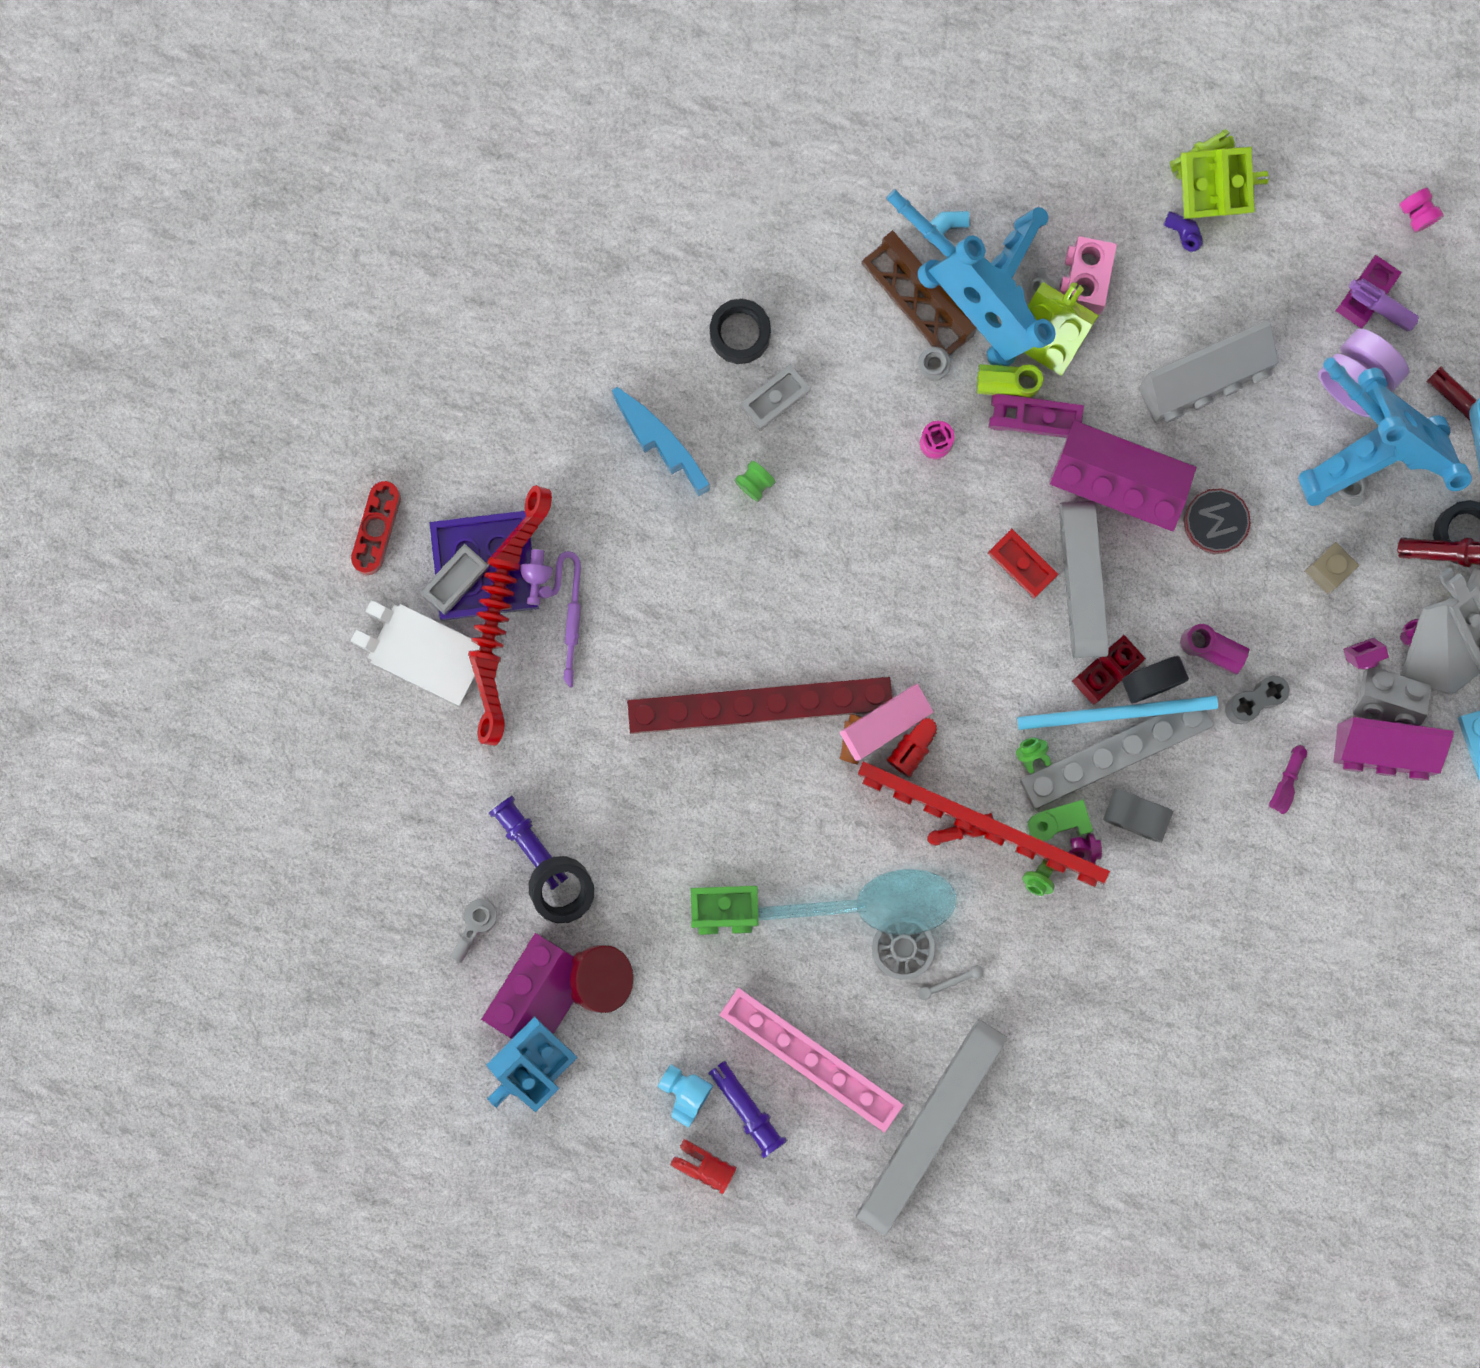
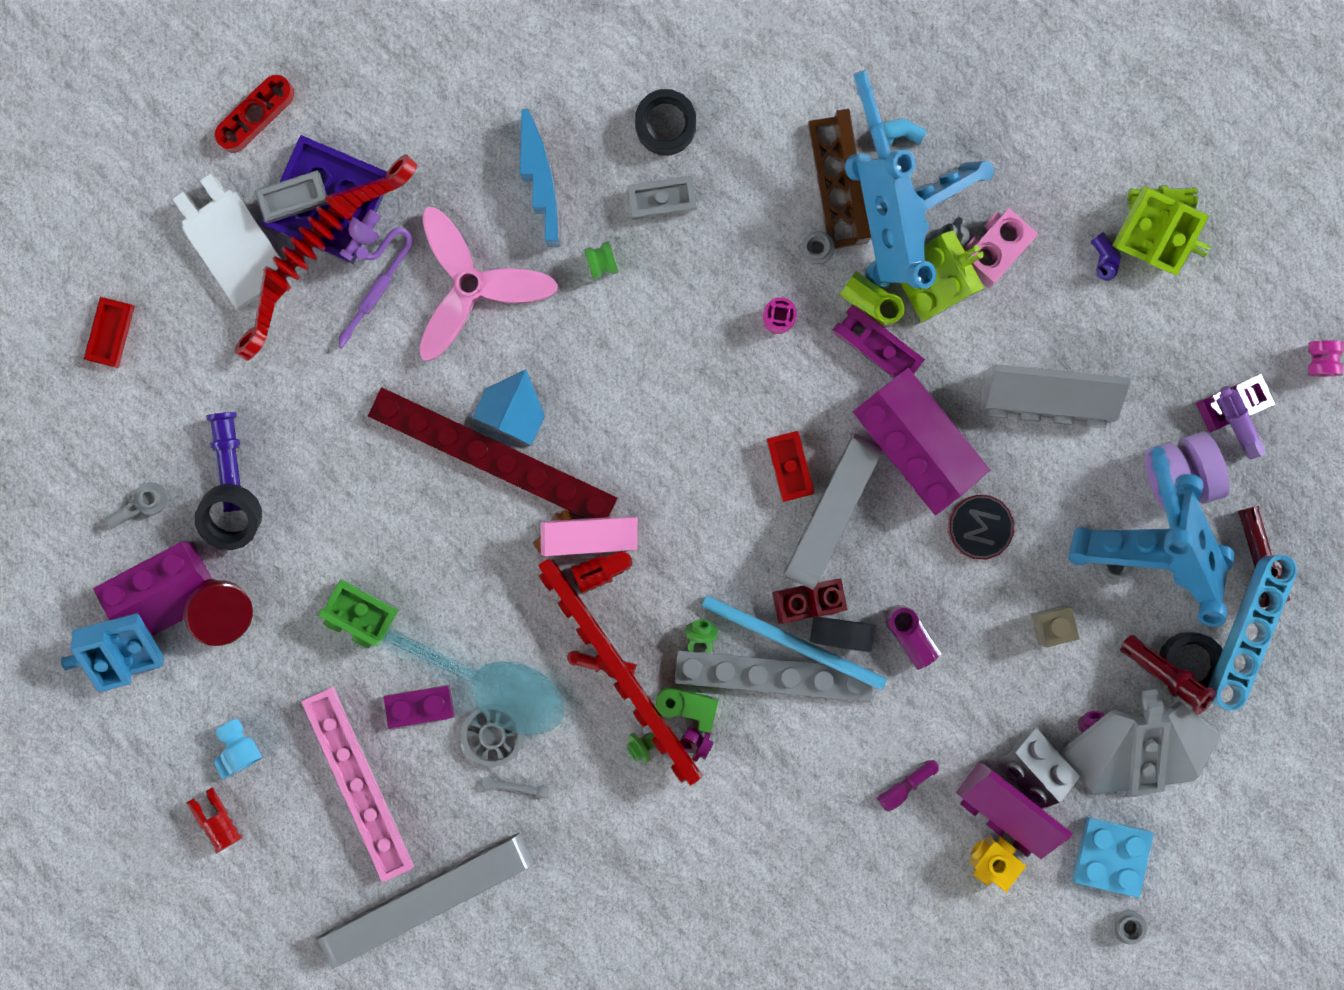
camera: 35 degrees right, 5 degrees up
(357, 792) = (109, 332): none -> red tile
(676, 554) = (497, 285): none -> bright pink piece
(751, 652) = (512, 407): none -> dark azure slope
(756, 1123) = (280, 810): dark purple pin -> none
(824, 961) = (419, 706): none -> magenta plate
(1138, 815) = (759, 740): dark grey axle -> none
(1257, 699) = (921, 702): dark grey axle -> none
(1366, 653) = (1040, 717): magenta plate -> none
(1415, 797) = (1004, 869): none -> yellow brick

